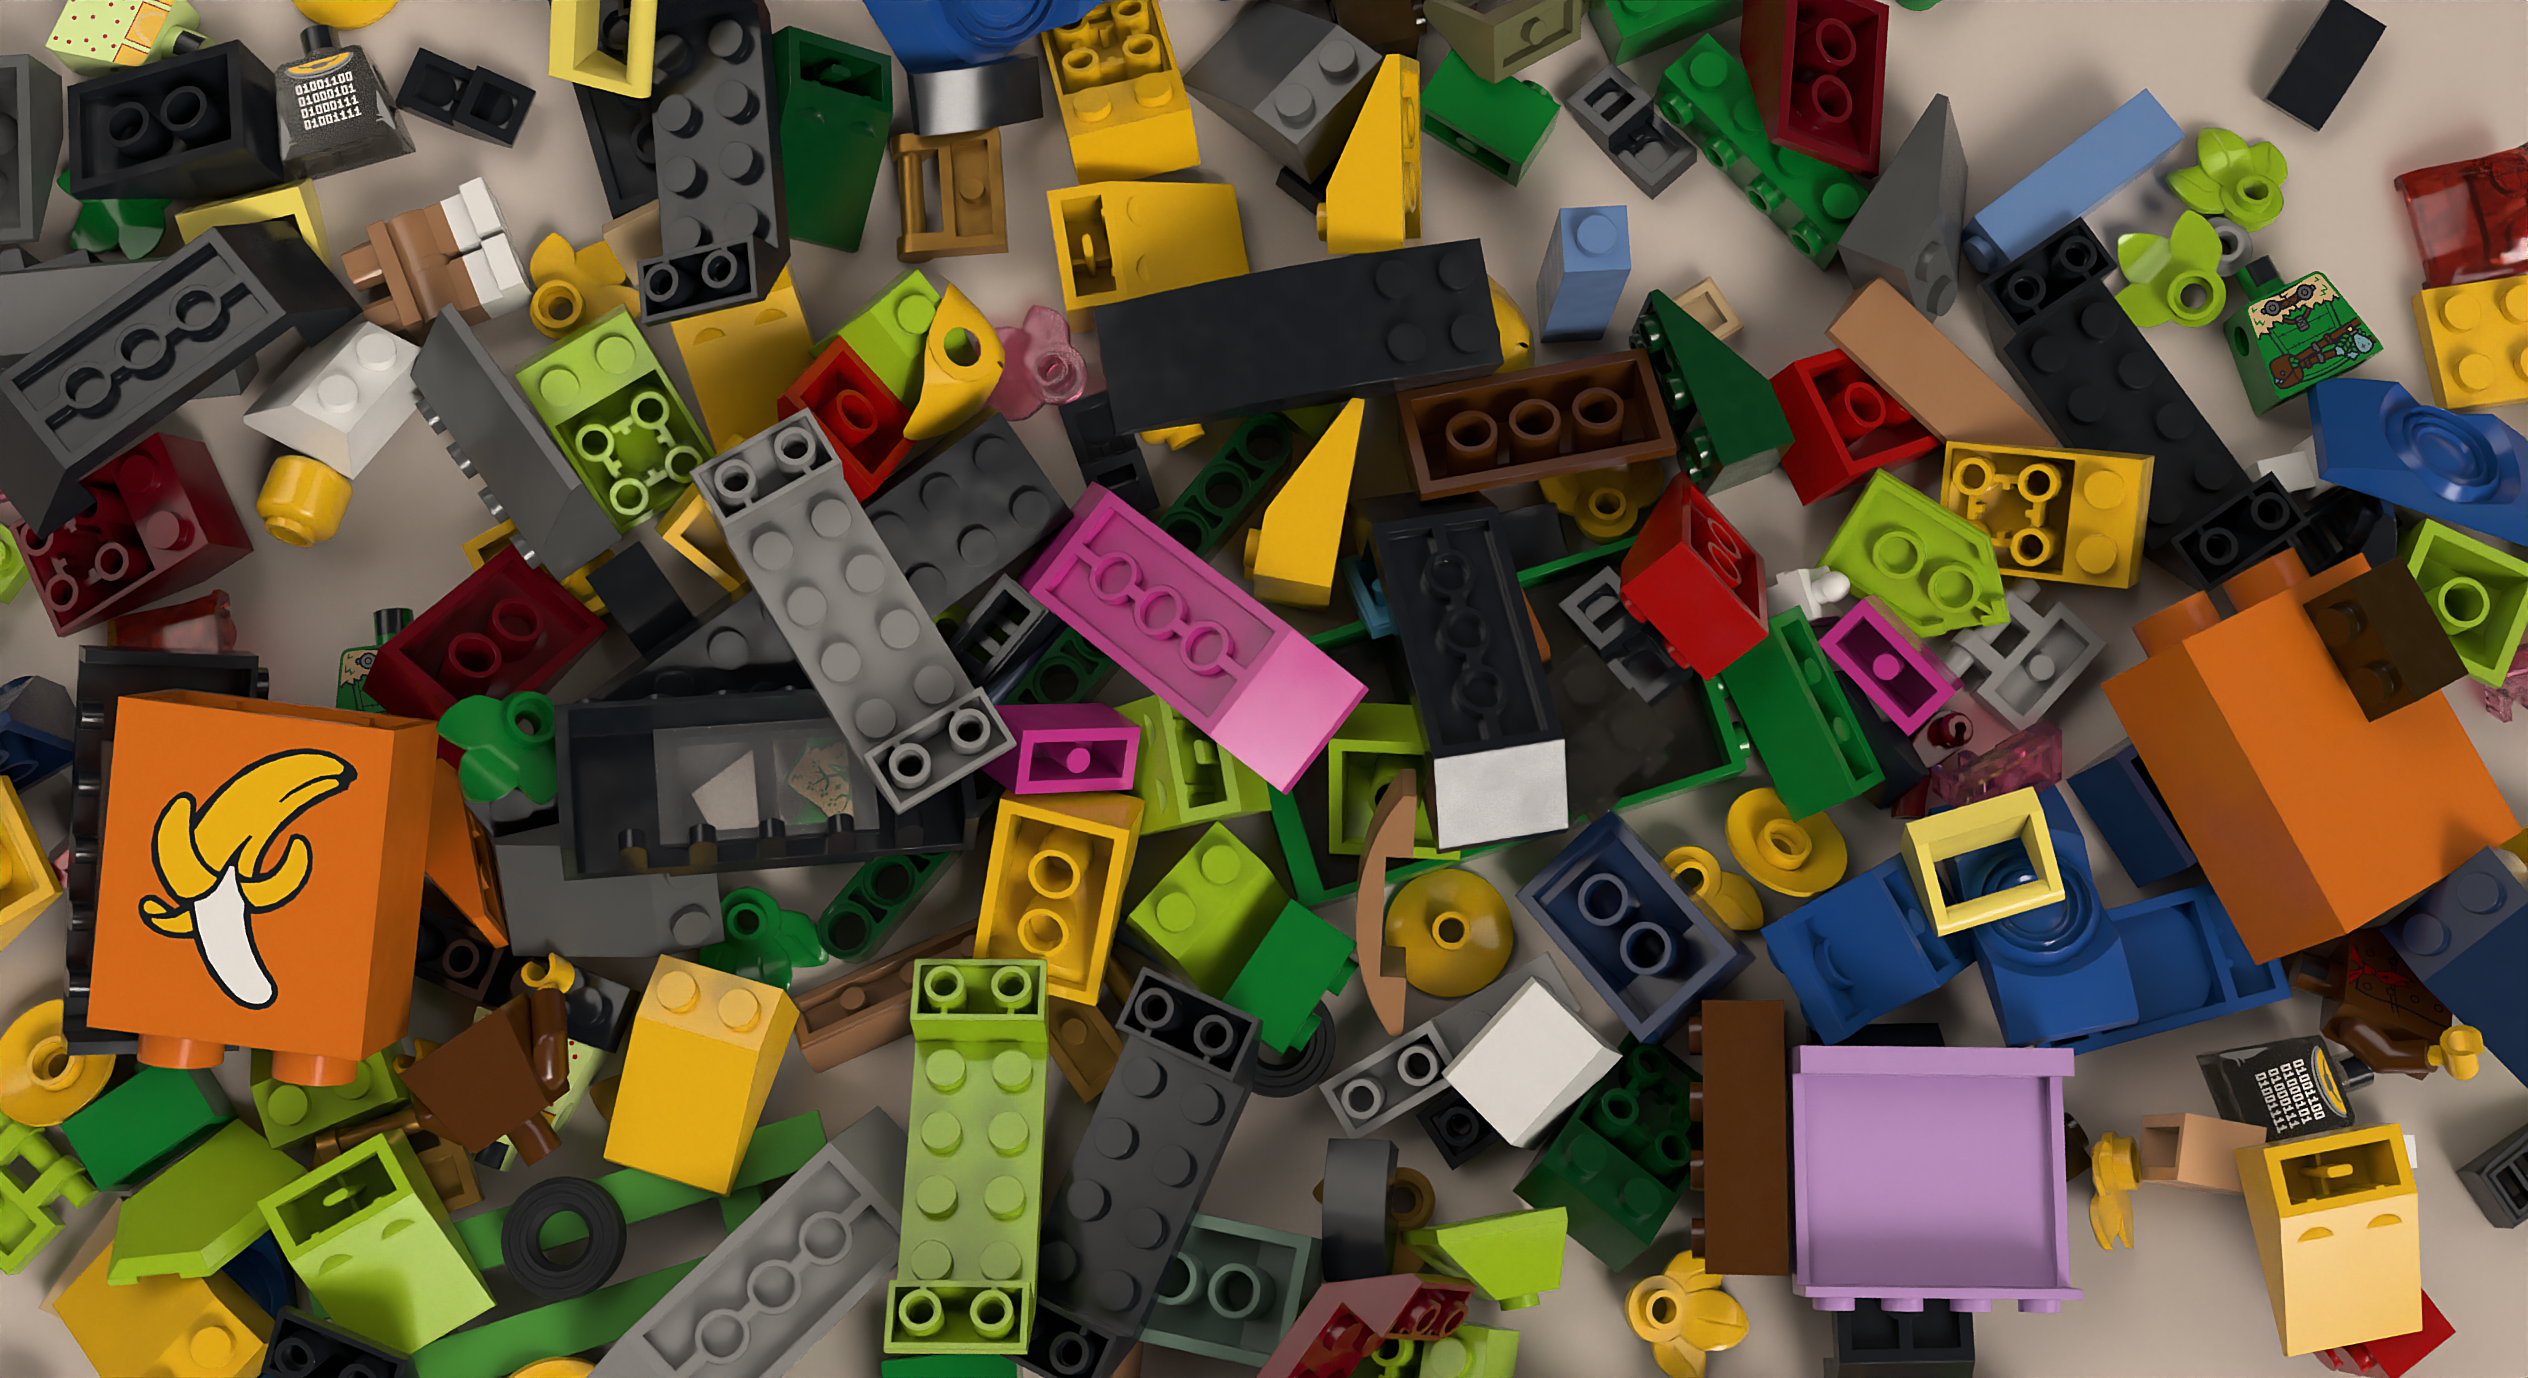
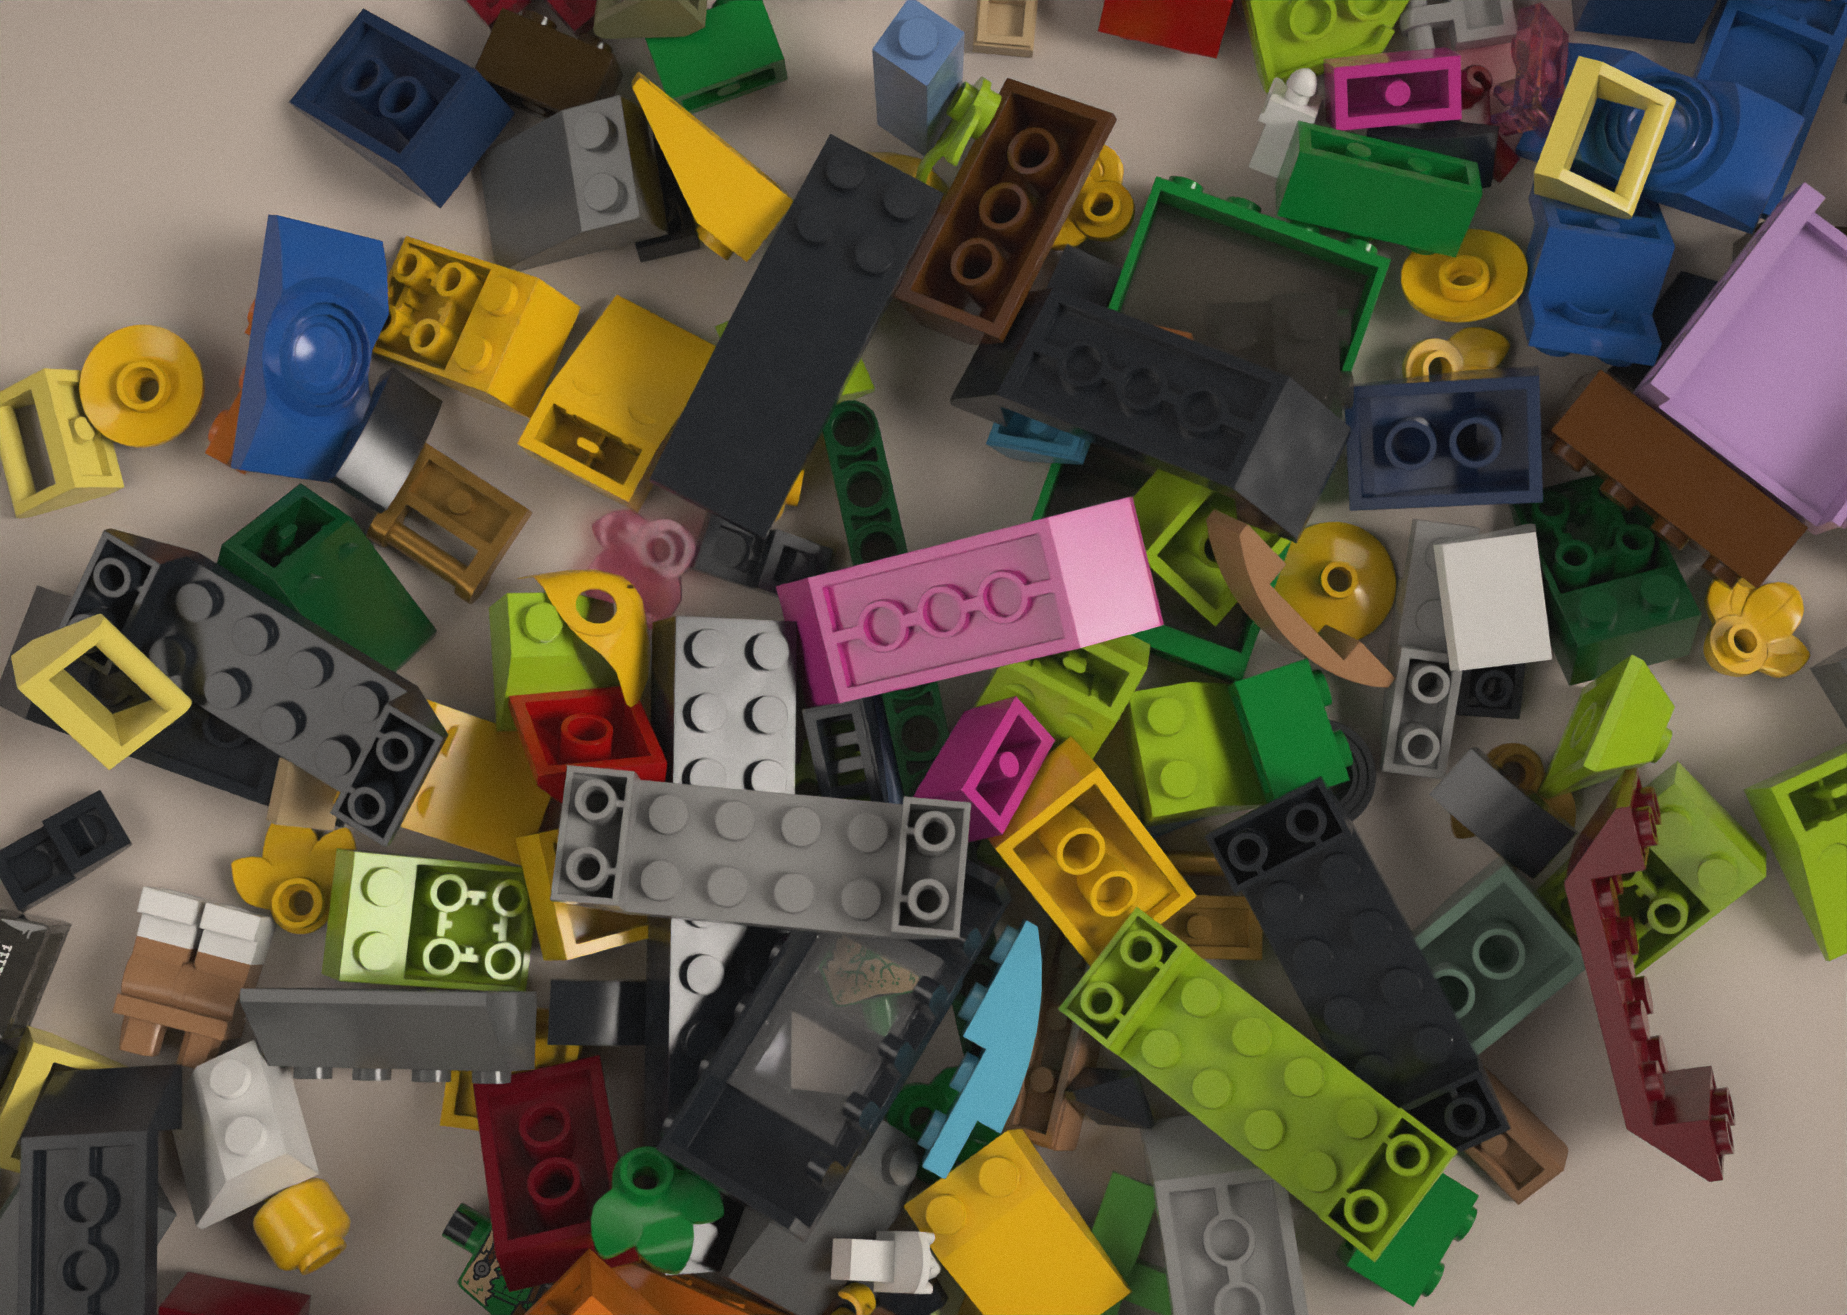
camera: 50 degrees left, 5 degrees up
(608, 977) = (893, 1261): none -> white piece
(866, 924) = (1005, 1025): none -> medium azure slope
(878, 1063) = (1111, 1097): none -> black slope
(1304, 524) = (951, 451): yellow slope -> none
(1592, 338) = (970, 115): none -> lime plate
(1624, 644) = (1221, 272): black slope -> none
(1696, 581) = (1226, 183): red slope -> none
(1713, 399) = (1091, 55): dark green slope -> none

